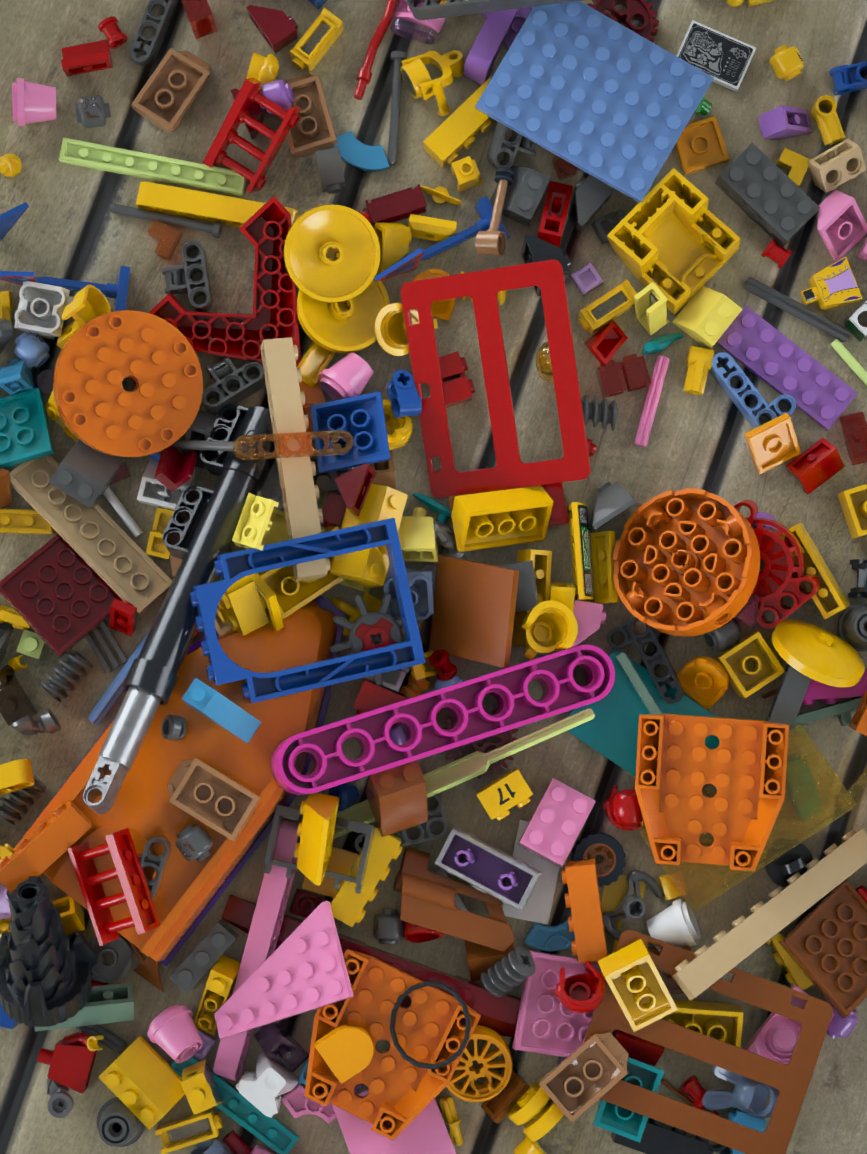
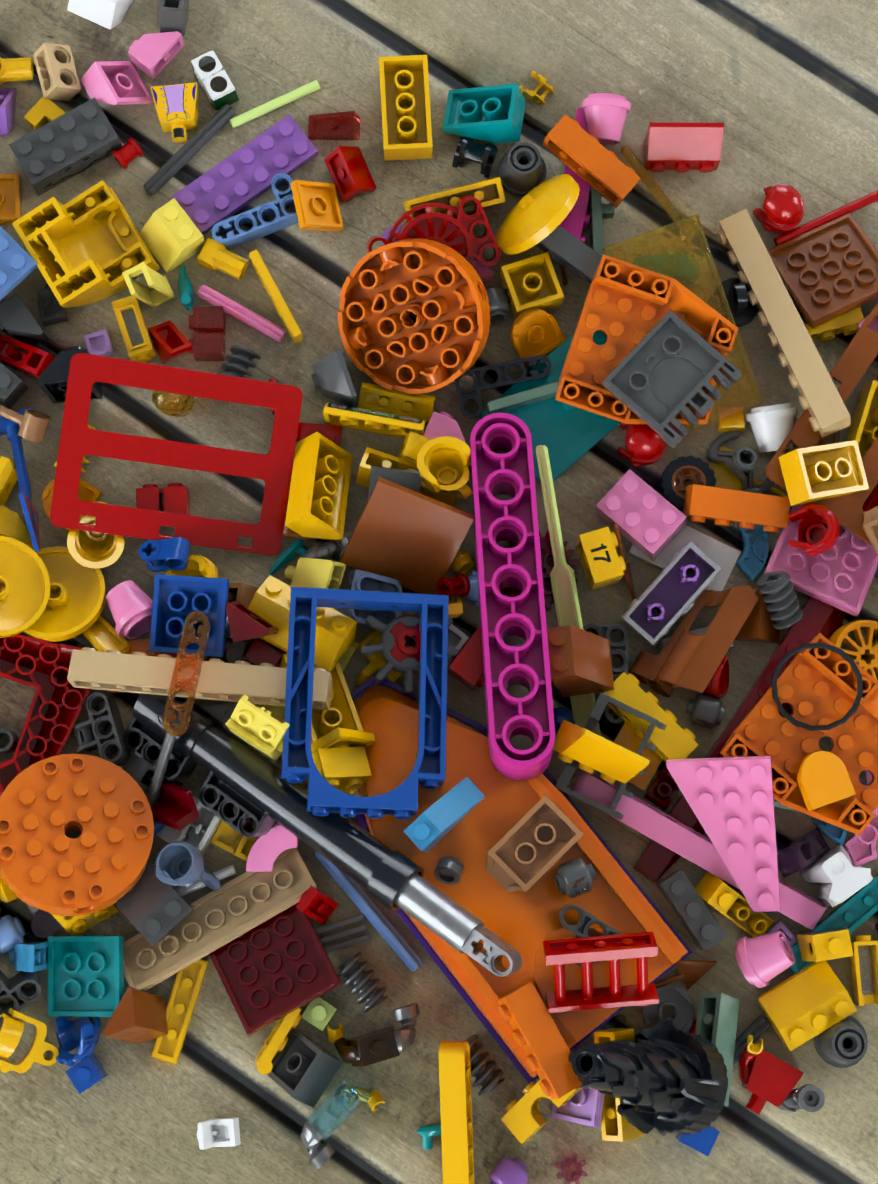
camera: 75 degrees left, 5 degrees down
(124, 489) = (183, 865): none -> sand blue piece
(159, 559) = (268, 847): none -> bright pink tile
(414, 687) = (467, 621): orange wheel -> none
(469, 668) = (462, 562): none -> yellow plate
(503, 822) = (628, 575): none -> dark orange piece
(675, 428) = (276, 297): none -> yellow tile
(690, 816) = (667, 375): none -> dark grey hinge

